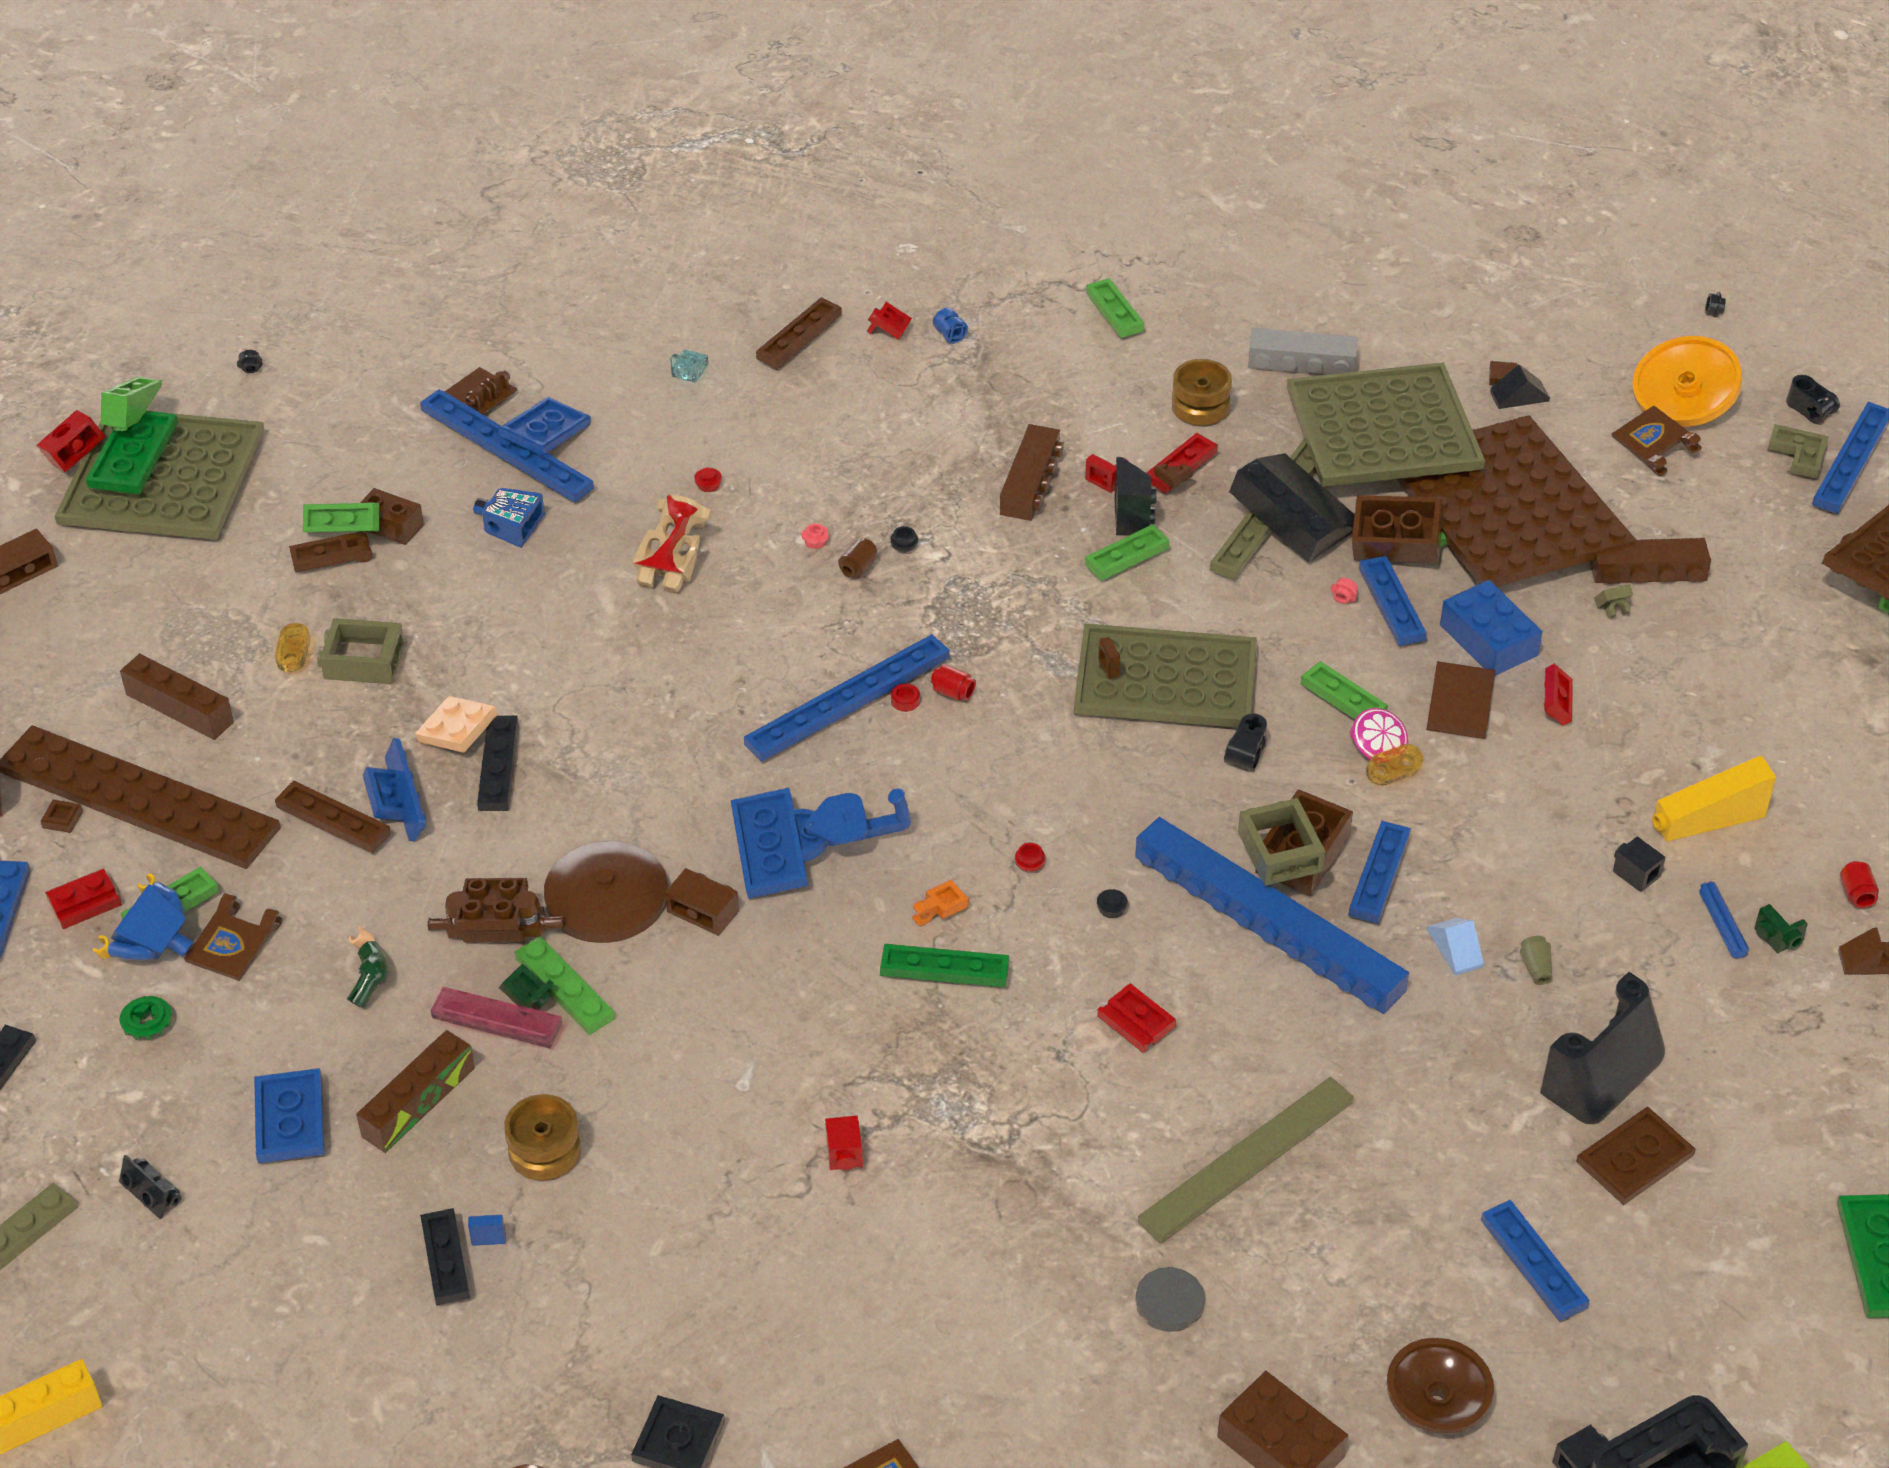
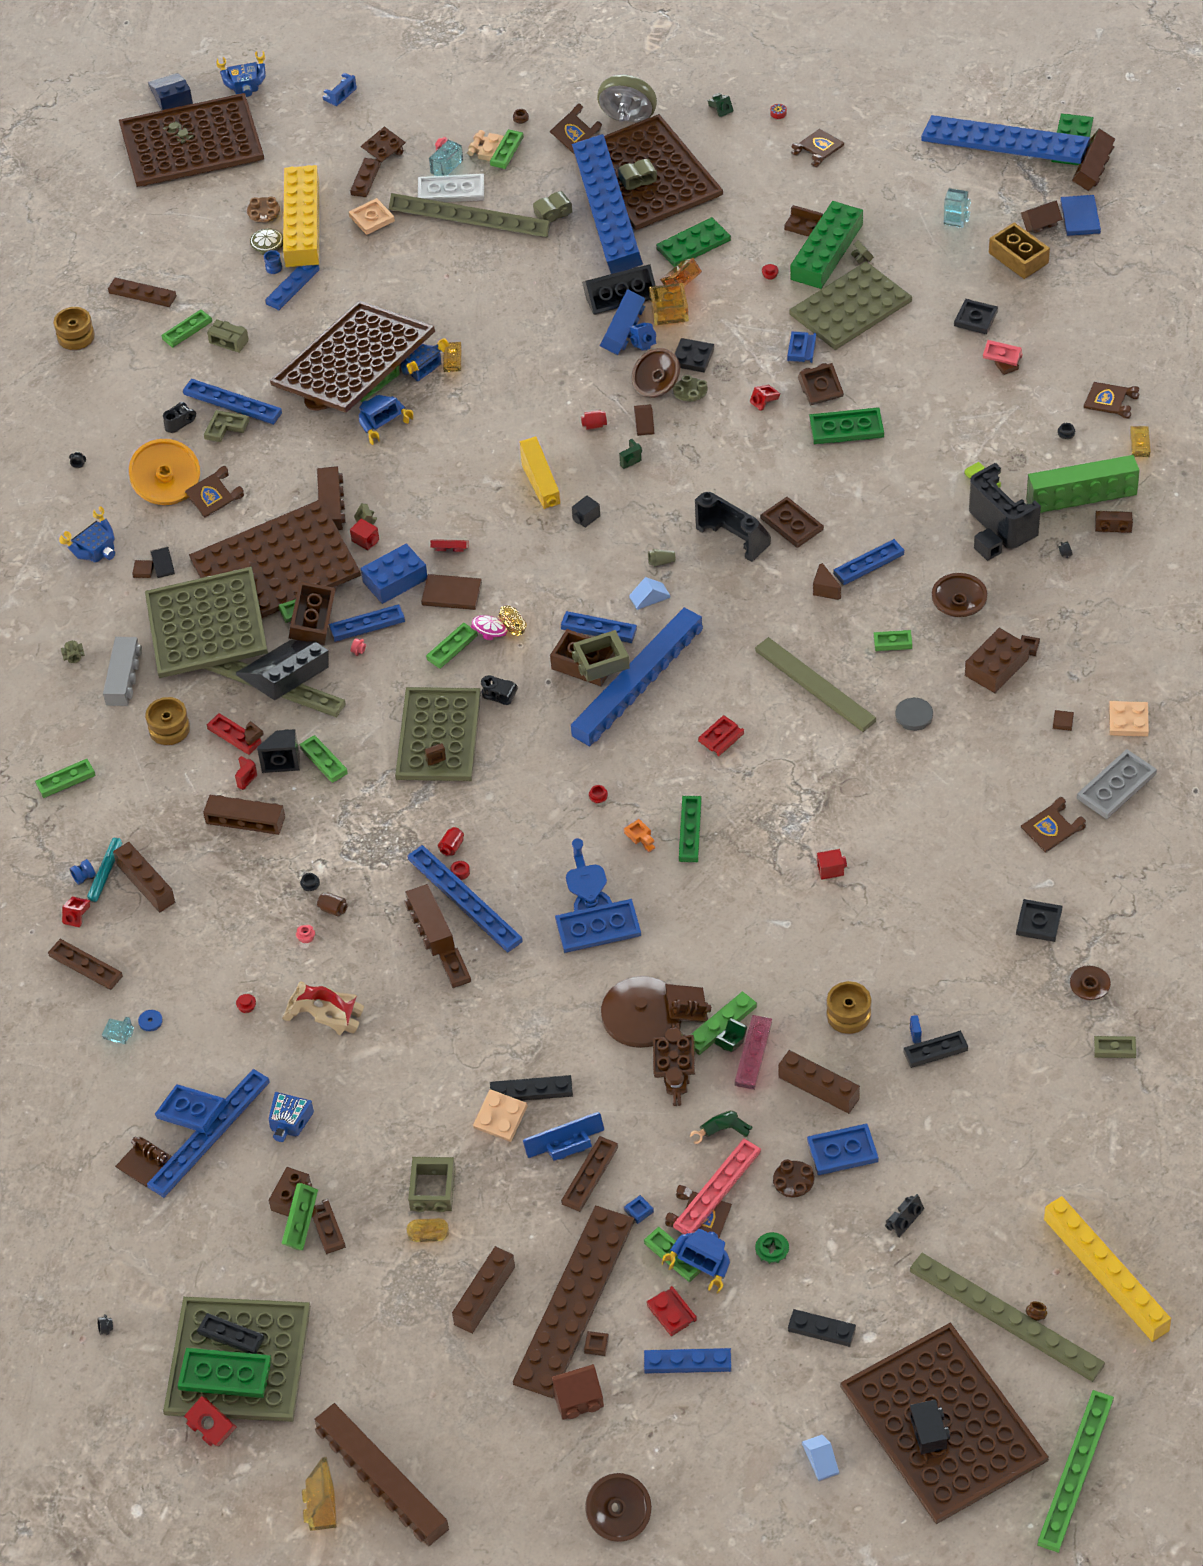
camera: 90 degrees left, 5 degrees up
(127, 402) = (180, 1373): bright green slope -> none
(189, 459) = (230, 1334): none -> black tile
(256, 1051) = (793, 1178): none -> reddish brown dish
(262, 871) = (639, 1209): none -> blue tile
(266, 958) = (717, 1187): none -> coral tile
(601, 938) = (687, 1003): none -> reddish brown hinge
(702, 901) = (650, 955): reddish brown brick -> none
(710, 395) = (144, 1018): none -> blue wheel
(723, 683) = (455, 968): none -> reddish brown plate
(805, 652) = (429, 920): none -> reddish brown brick
(931, 378) = (144, 877): none -> reddish brown brick
(956, 348) = (104, 870): none -> teal axle
(1112, 903) = (632, 752): black plate -> none
(1338, 305) = (72, 651): none -> olive gear
(1341, 1279) = (892, 640): none -> bright green plate
(1480, 1185) = (825, 584): none -> reddish brown slope
(1549, 320) = (94, 541): none -> blue torso
(1575, 597) = (364, 534): none -> red brick
(1724, 920) = (622, 479): blue axle -> none
(1838, 610) = (380, 411): none -> blue torso

